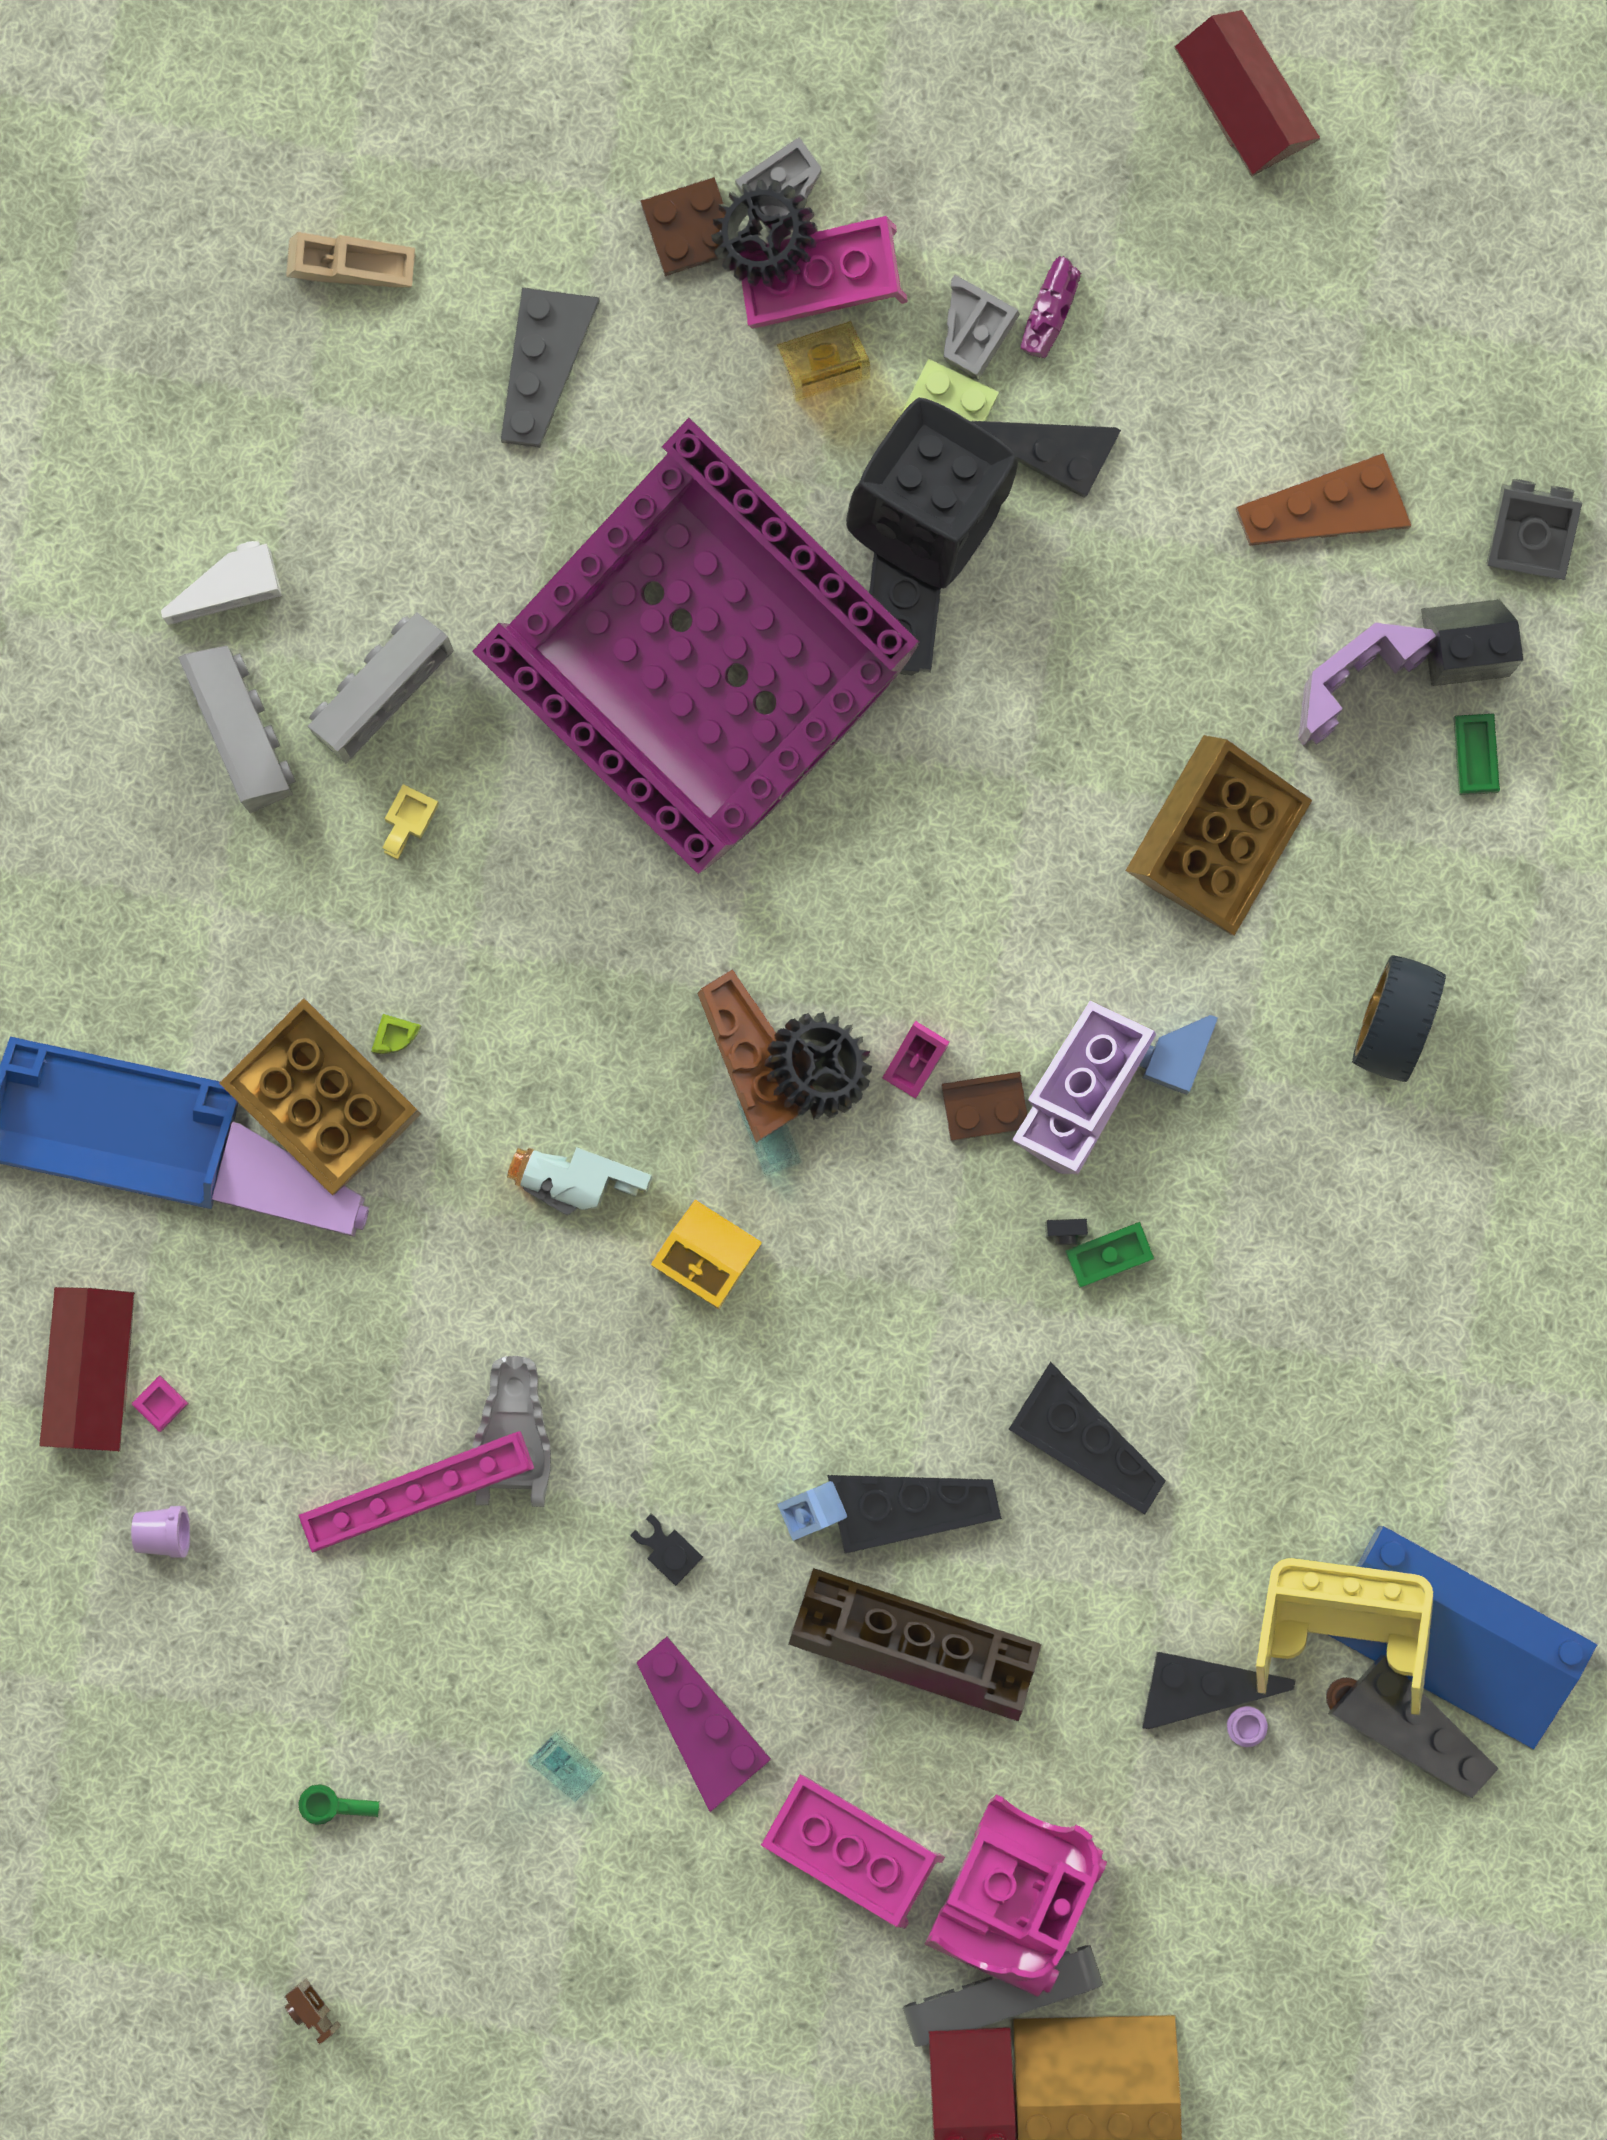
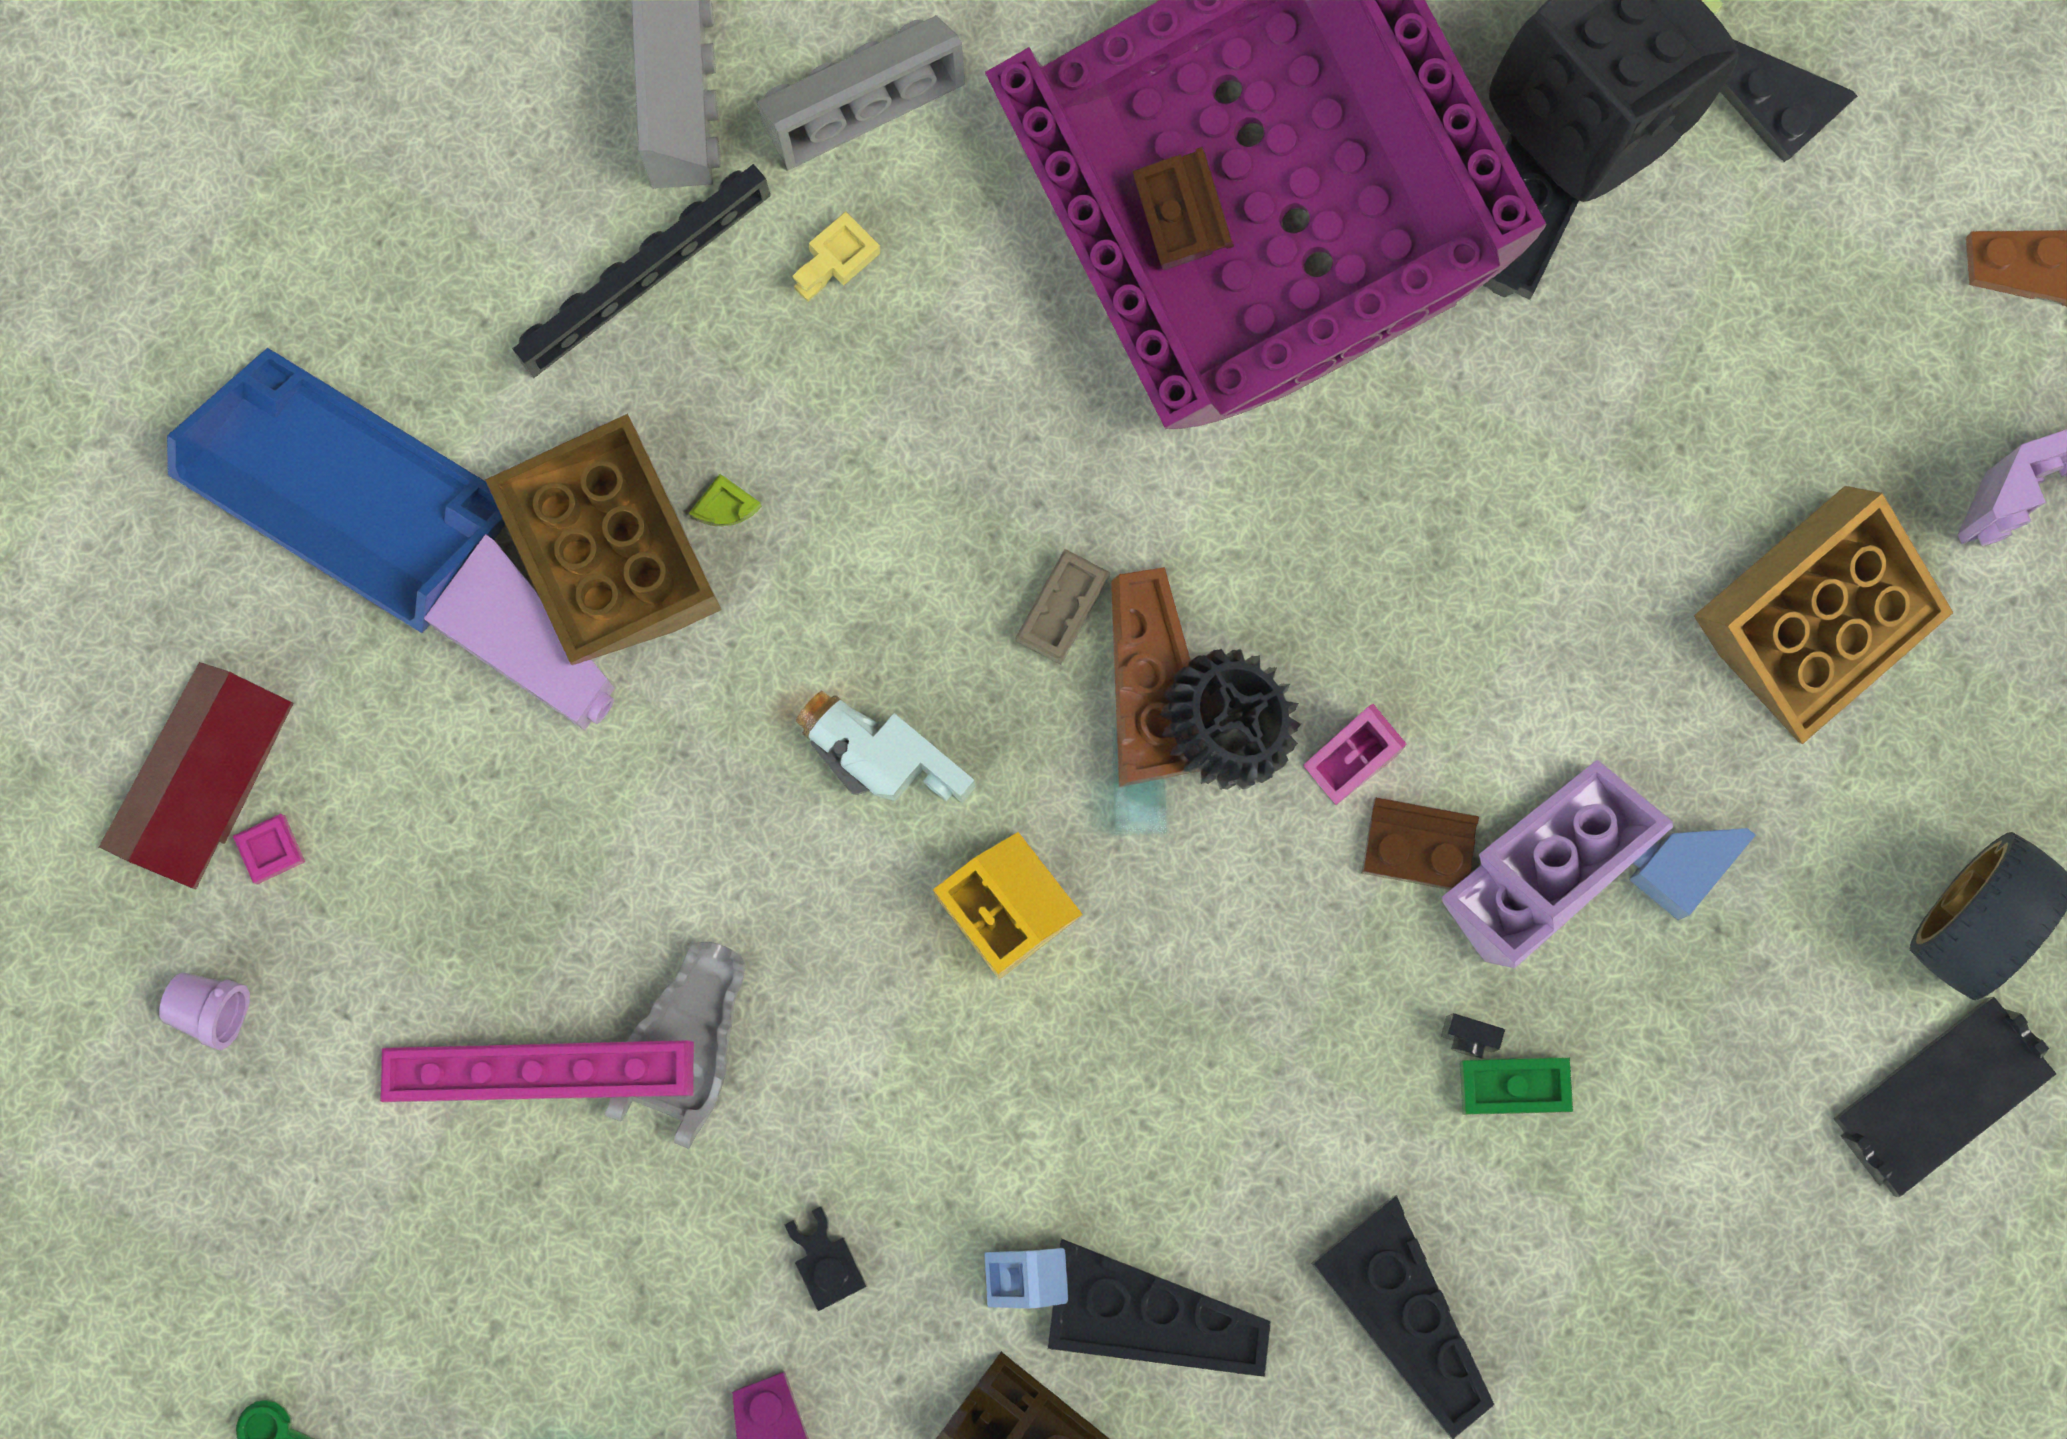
camera: 20 degrees right, 5 degrees down
(276, 867) = (627, 281): none -> black plate
(652, 699) = (1183, 208): none -> reddish brown plate
(668, 1024) = (1062, 606): none -> dark tan plate
(1412, 1154) = (1945, 1096): none -> black brick

